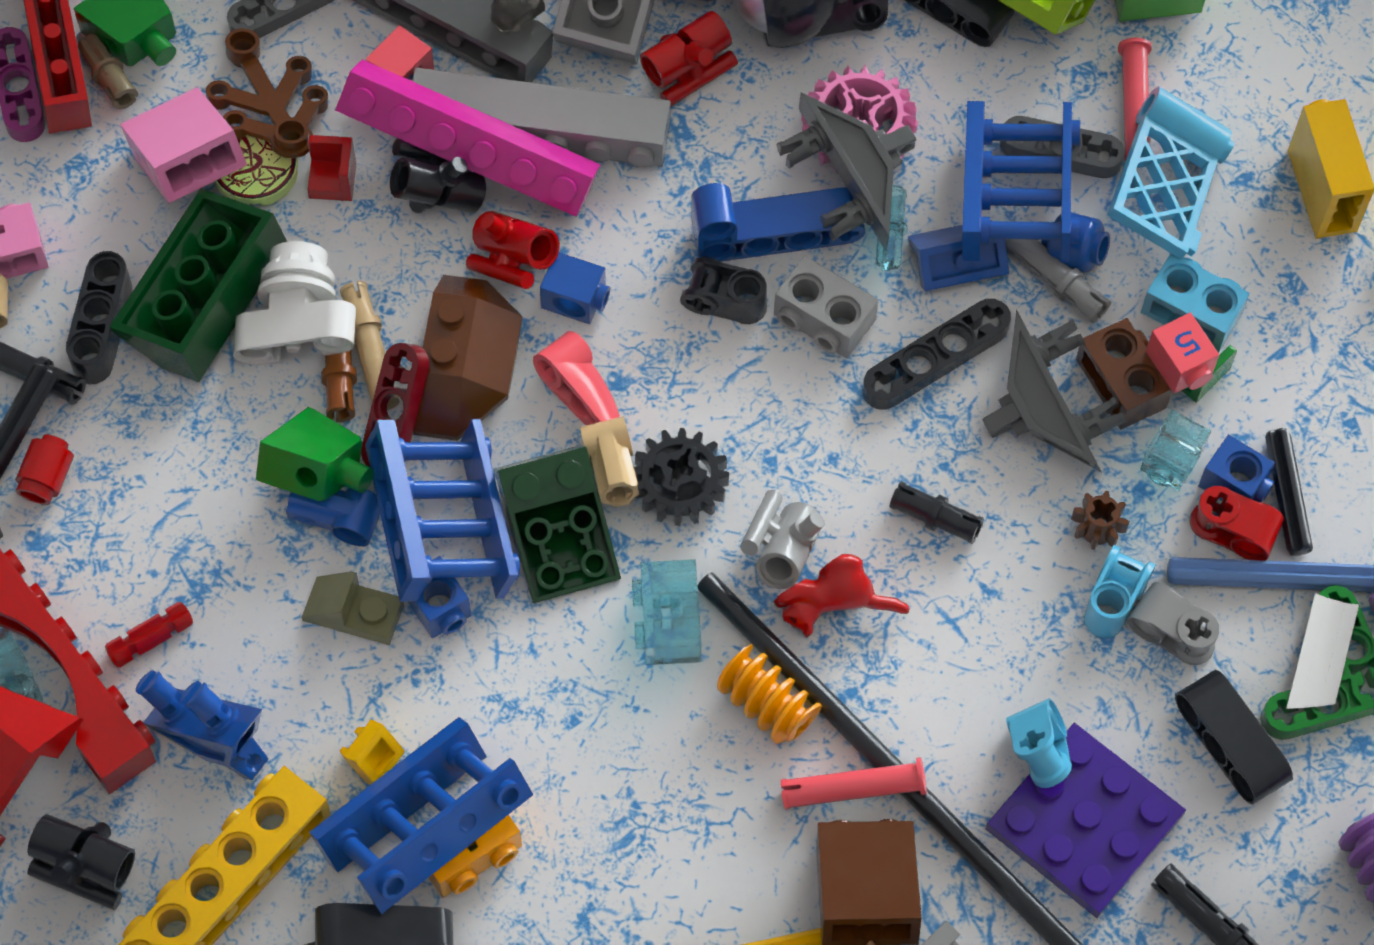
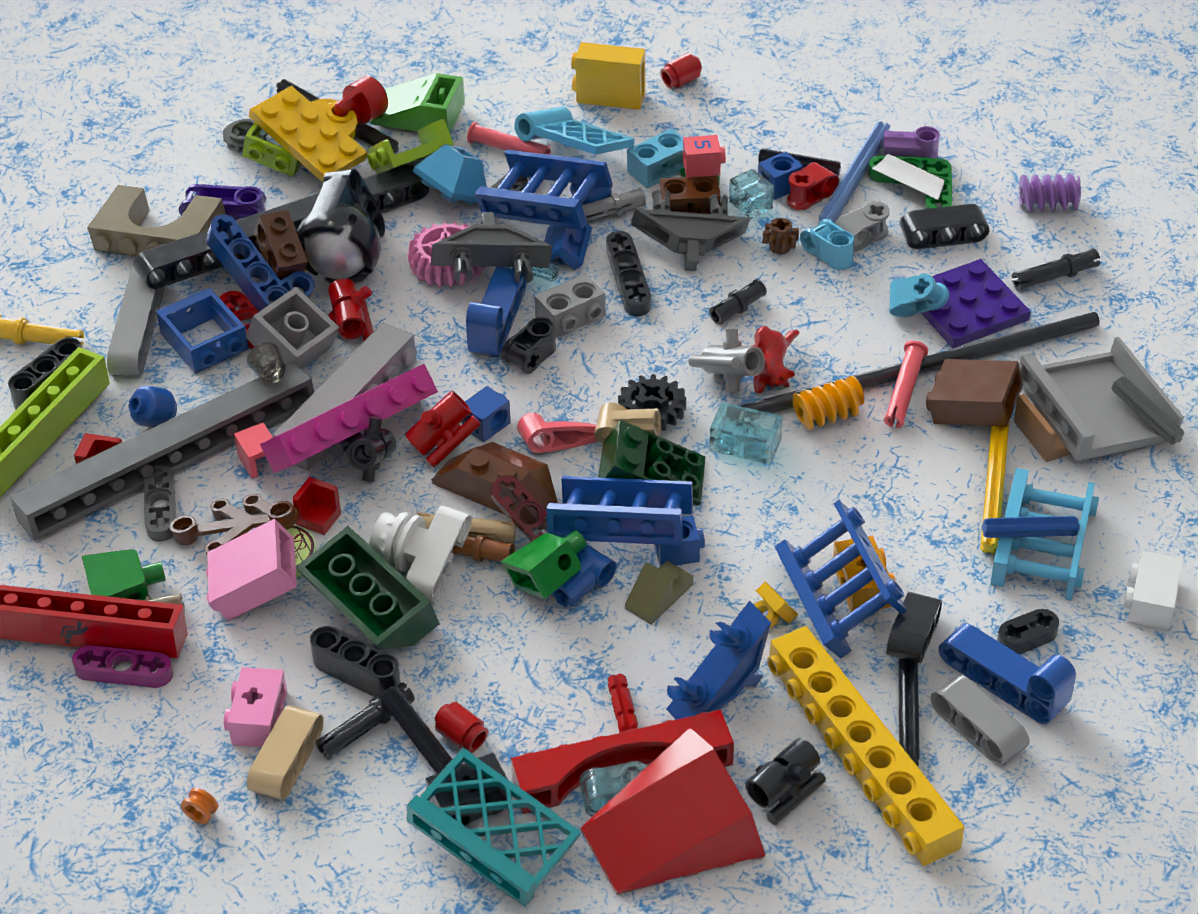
camera: 65 degrees left, 20 degrees down
(1006, 62) = (453, 172): none -> dark azure slope

